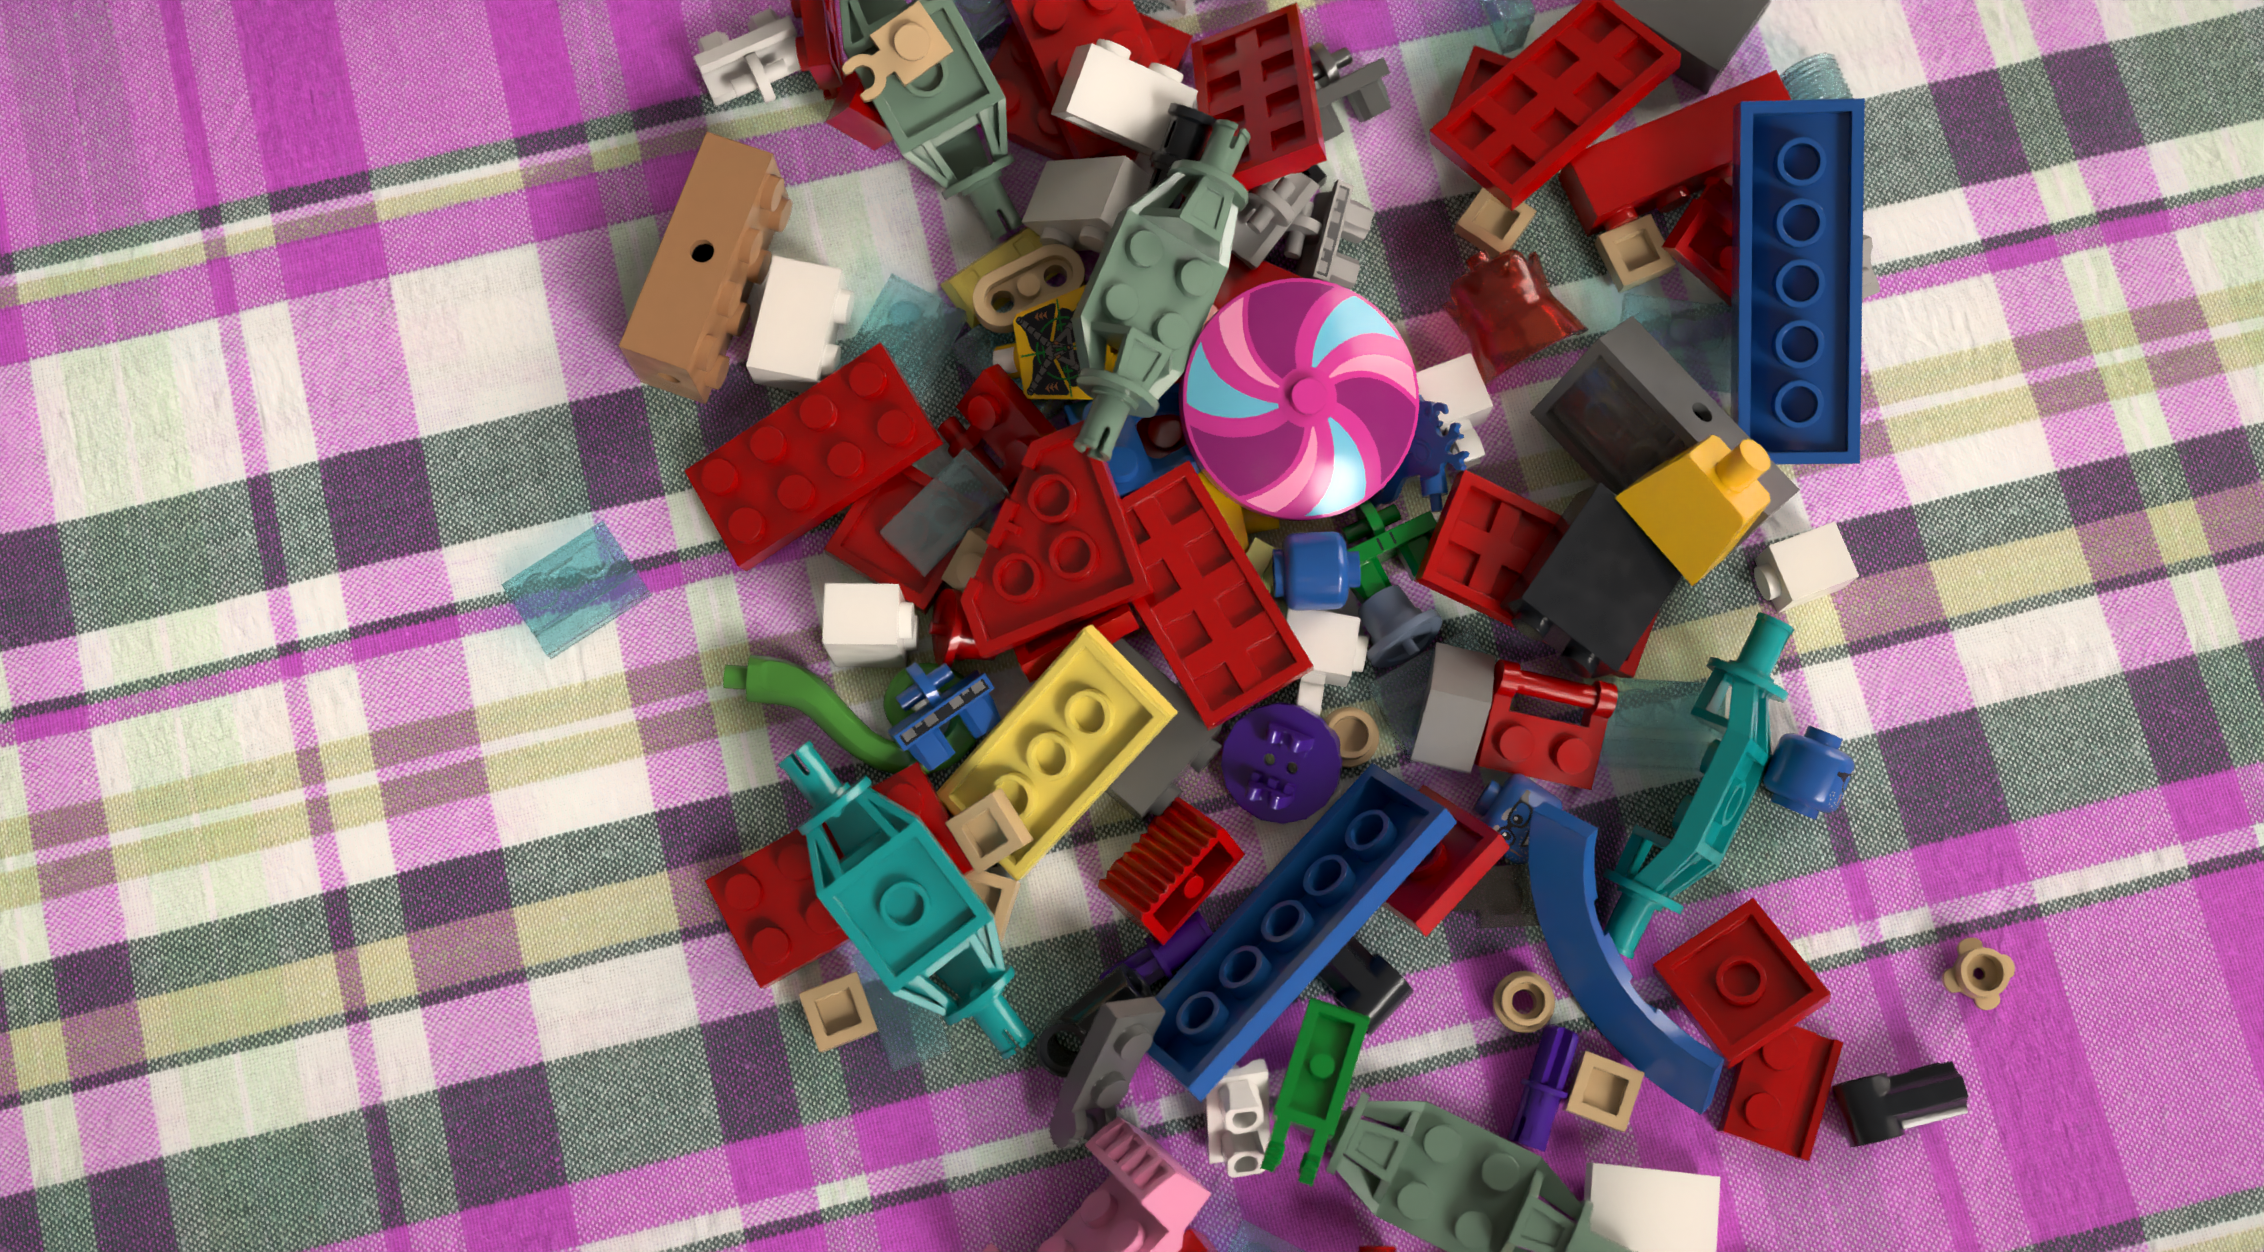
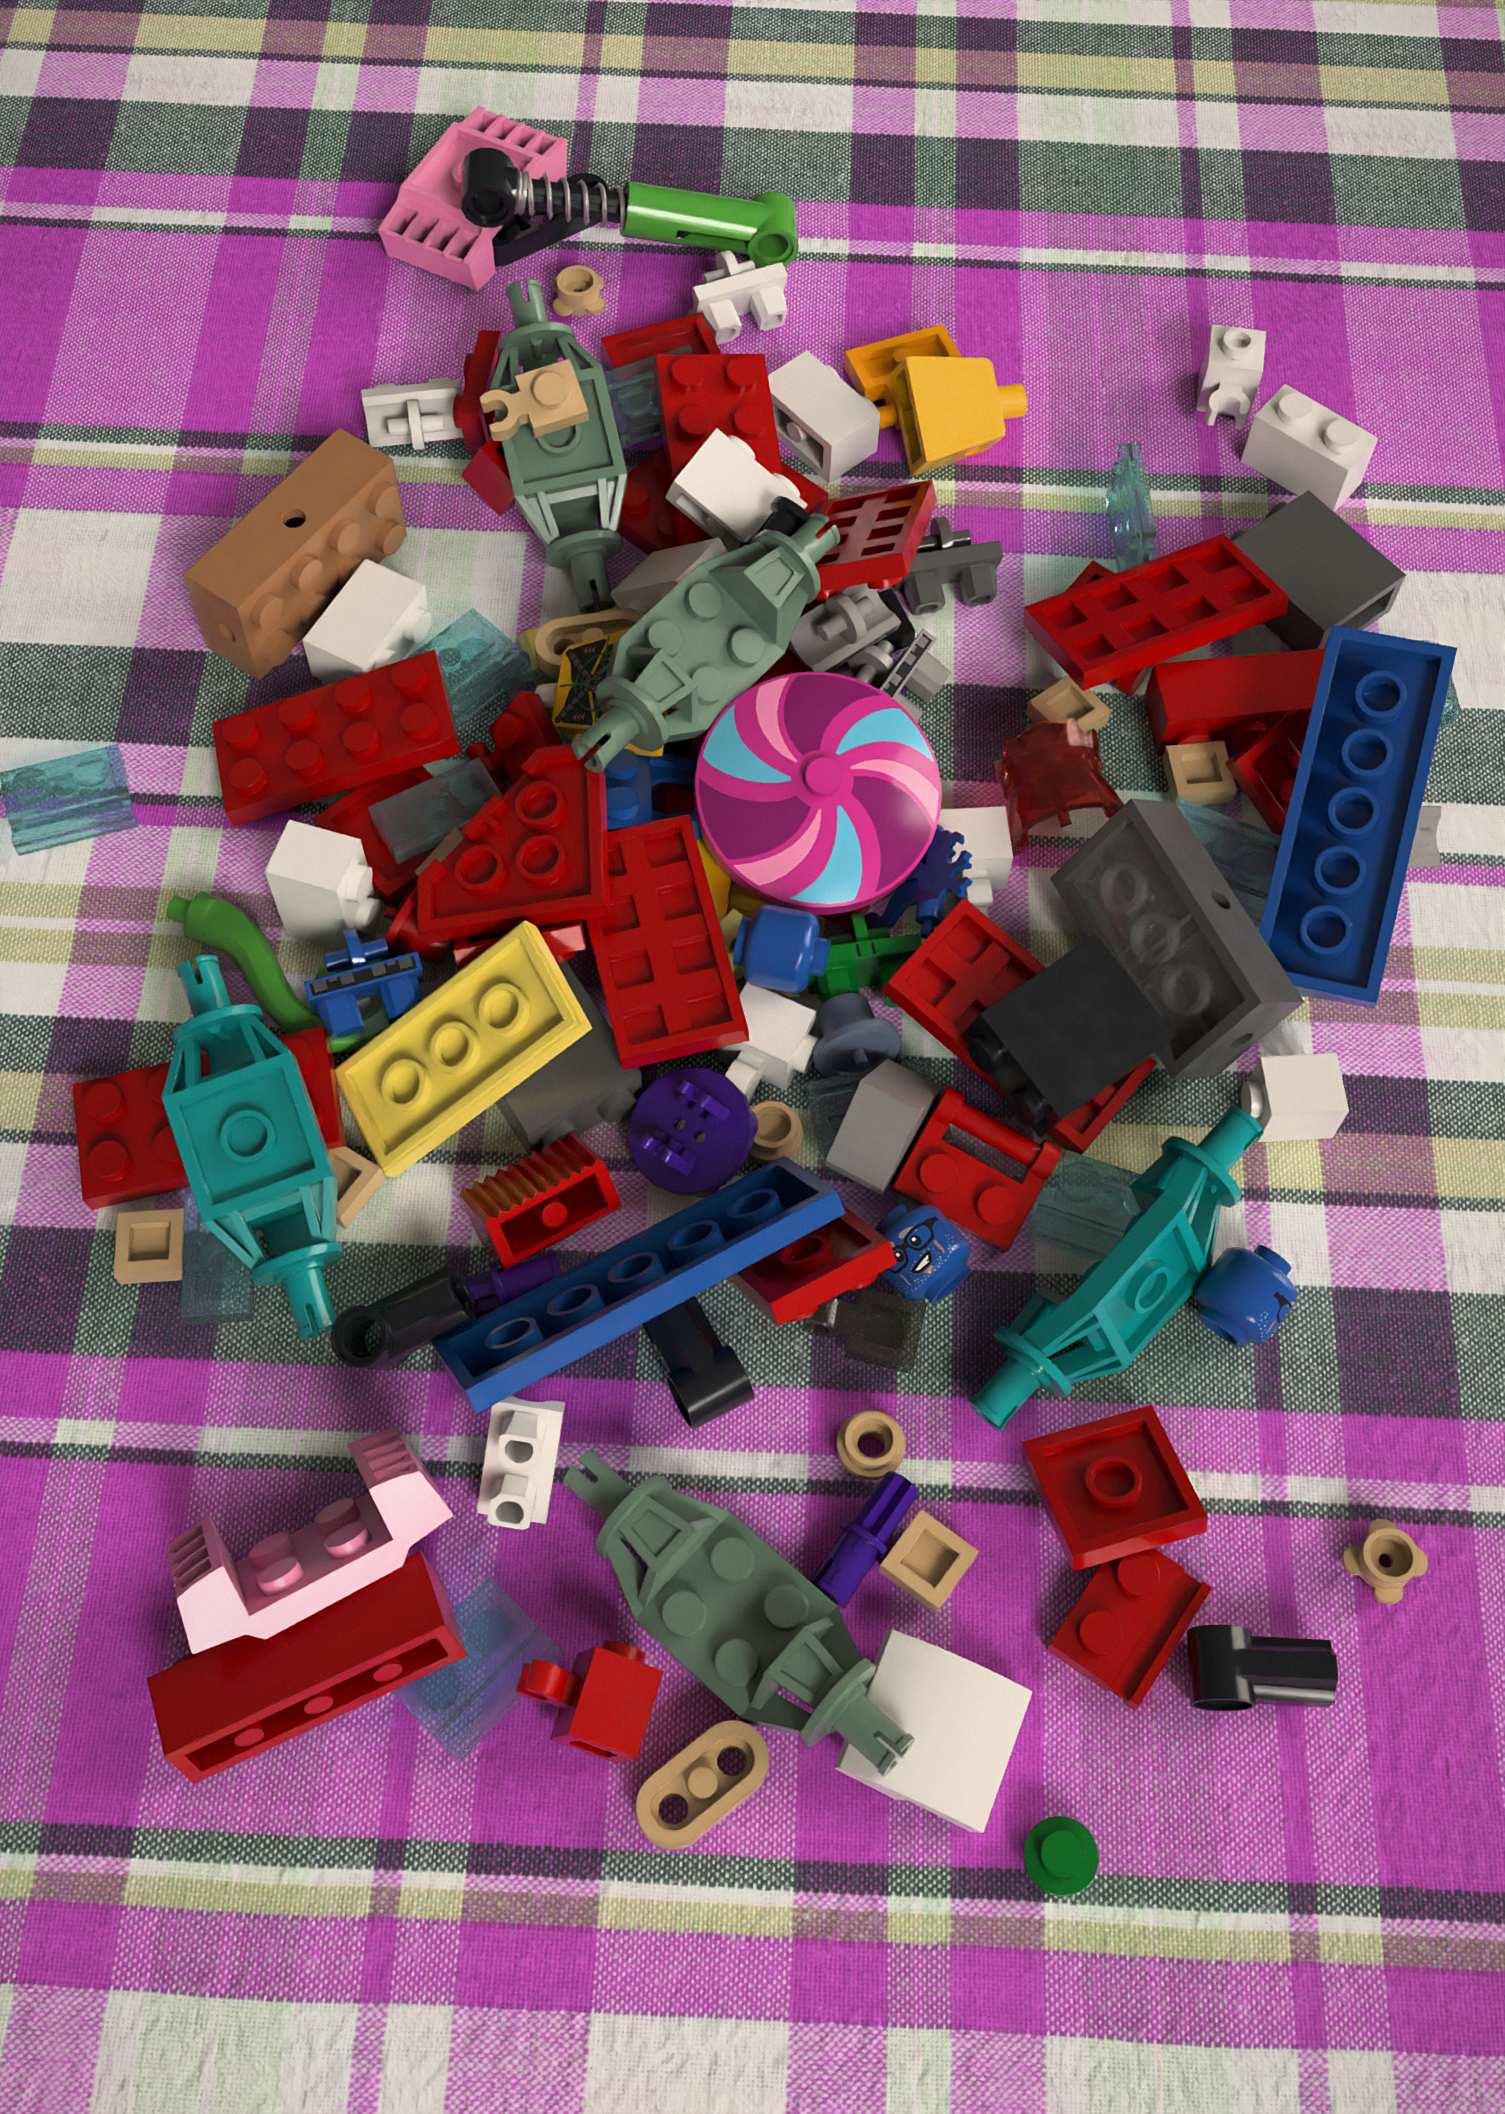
camera: 15 degrees right, 15 degrees down
(989, 830) = (368, 1106): tan plate -> none
(1104, 1069) = (395, 1362): dark grey hinge -> none
(1316, 1082) = (609, 1445): green hinge -> none
(1589, 962) = (956, 1426): blue tile -> none
(1700, 502) = (1193, 973): yellow torso -> none

